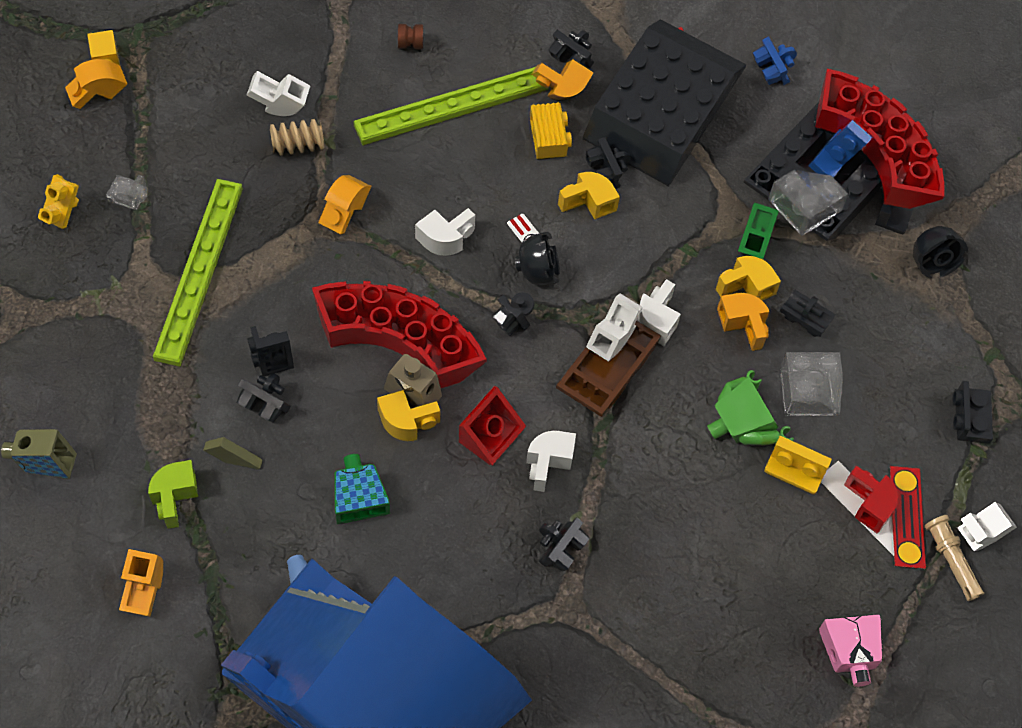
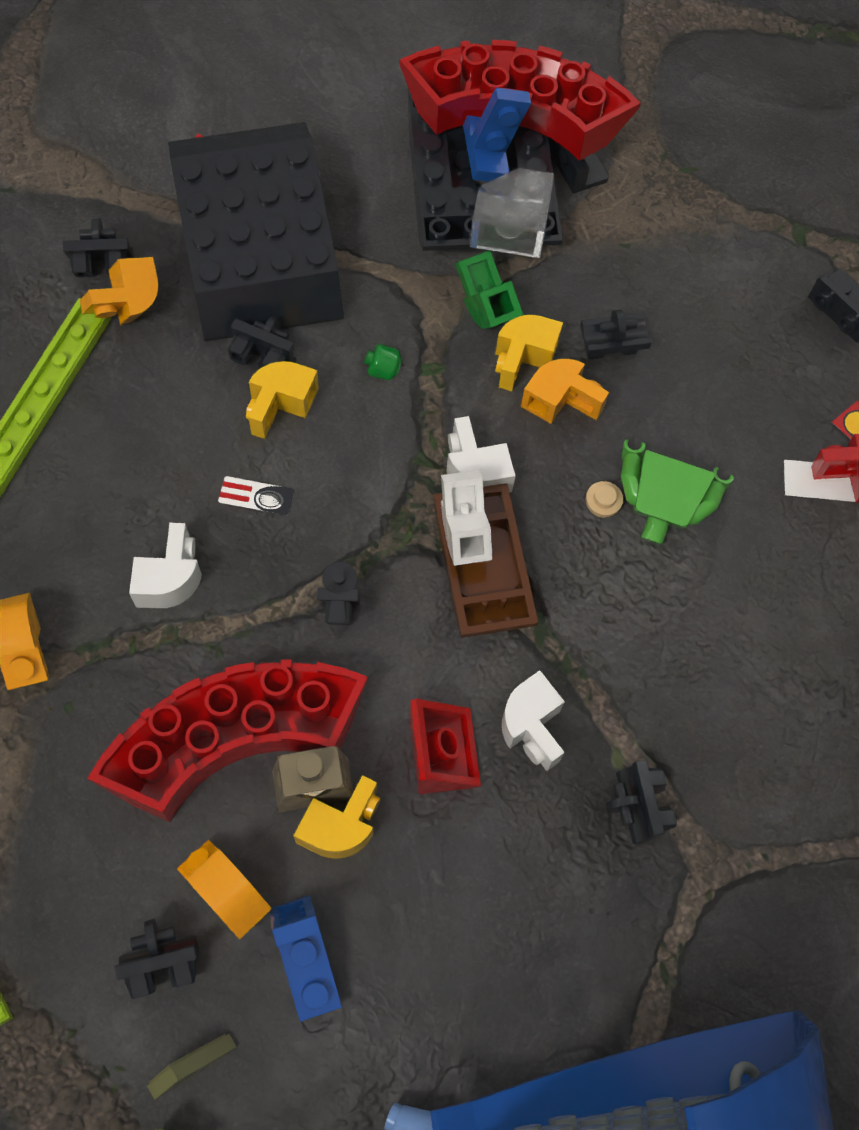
camera: 45 degrees left, 5 degrees up
(271, 352) = (119, 900): black bracket -> none
(322, 394) = (224, 888): none -> light orange brick
(326, 457) = (304, 958): none -> blue bracket
(359, 492) = (378, 961): torso -> none
(538, 260) = (300, 515): black cylinder -> none
(549, 130) = (164, 360): yellow brick -> none
(665, 224) = (383, 362): none -> green piece
(708, 390) = (604, 499): none -> tan plate
(777, 70) = (320, 95): blue hips -> none
(797, 465) = (765, 499): yellow bracket -> none
(812, 383) = (690, 403): clear slope -> none
(939, 251) = (662, 168): black cylinder -> none

